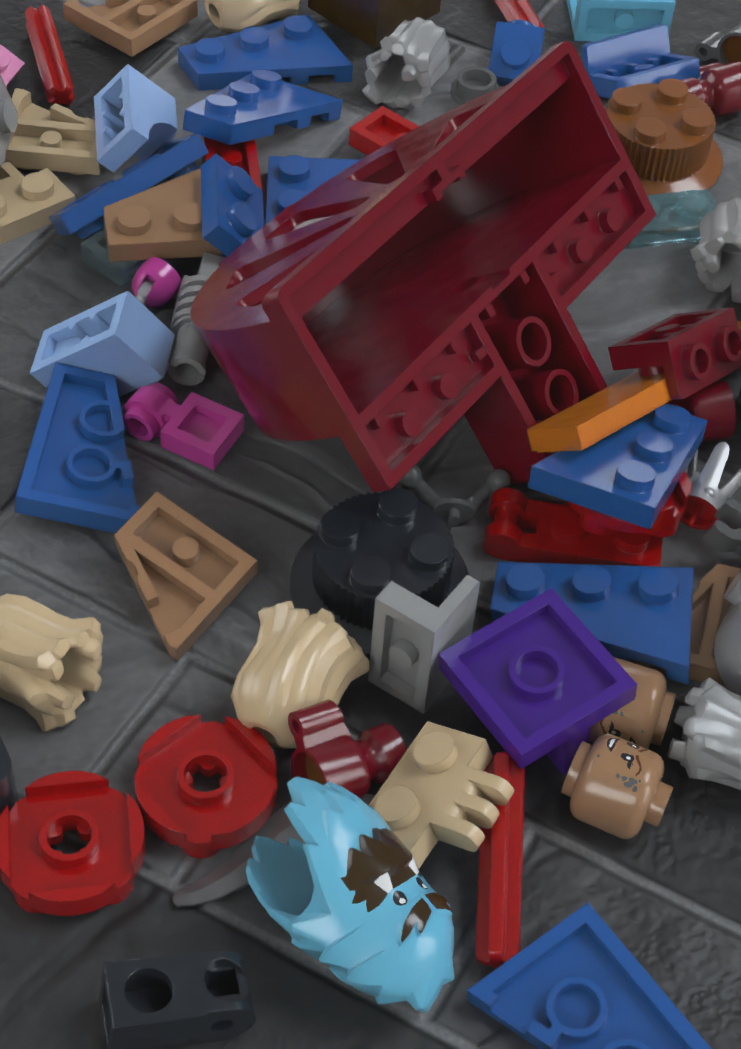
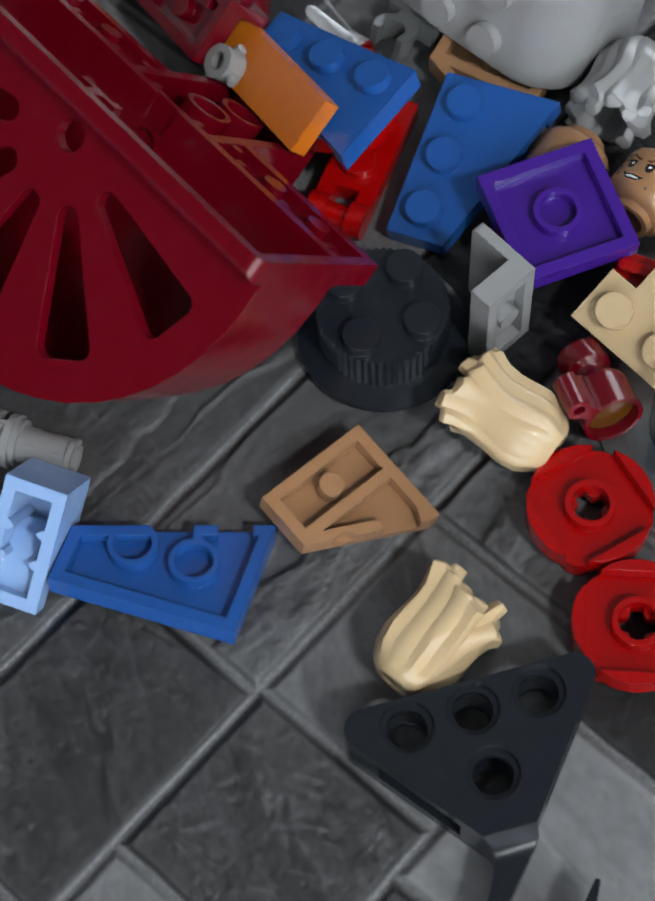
camera: 70 degrees left, 15 degrees up
(193, 430) = (158, 458): dark pink plate -> none
(615, 374) = (226, 63): none -> light grey piece

